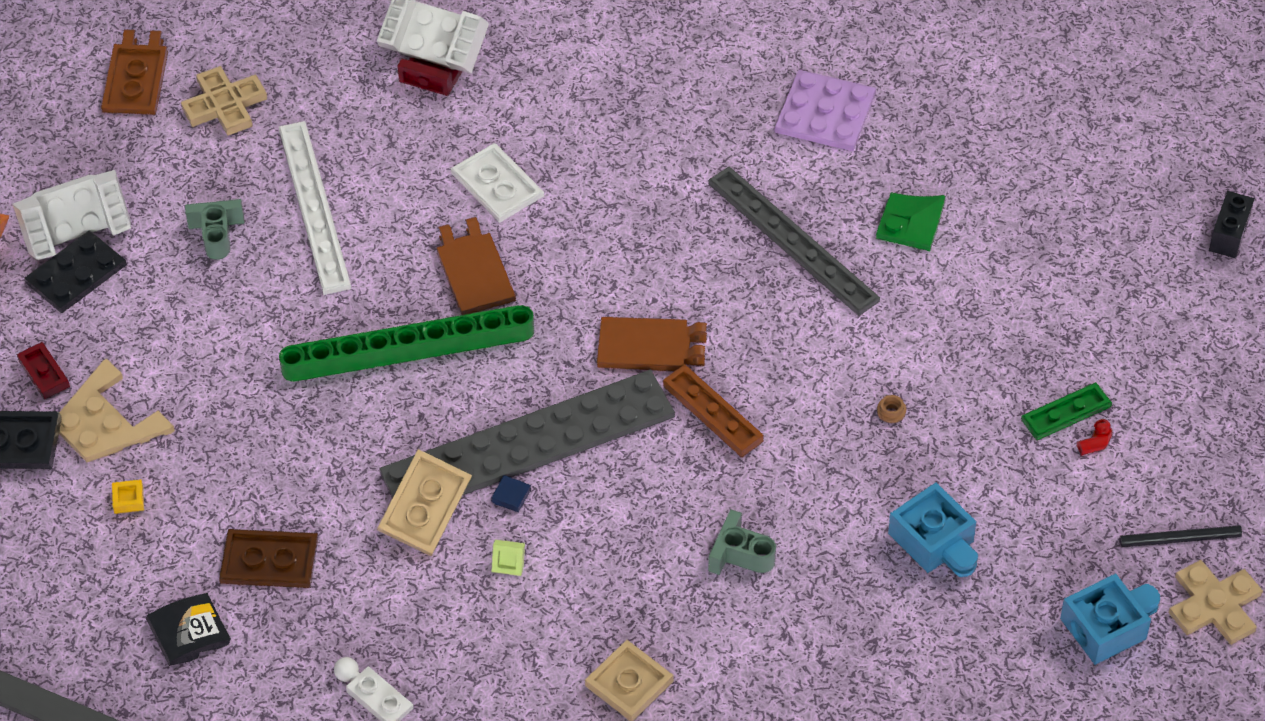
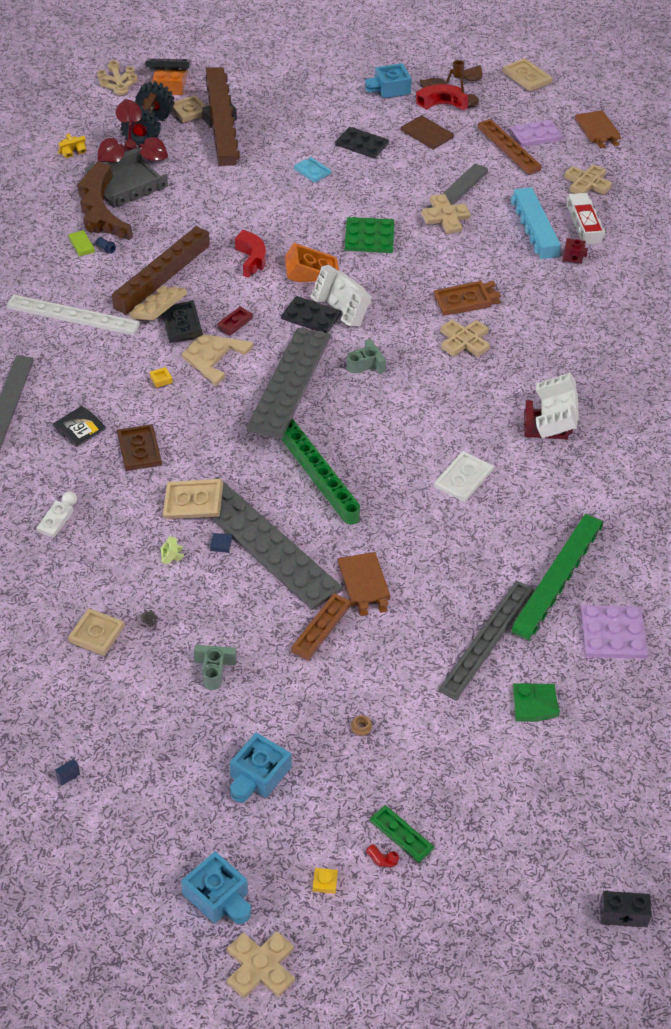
camera: 70 degrees right, 5 degrees down
(230, 327) = (288, 383): none -> dark grey plate
(314, 208) = (403, 399): white tile -> none
(474, 269) = (388, 482): dark orange tile -> none
(627, 608) = (149, 618): none -> clear smoke plate
(721, 133) = (556, 577): none -> green beam
(1114, 506) = (325, 880): none -> yellow plate
(1180, 536) = (314, 931): black bar -> none

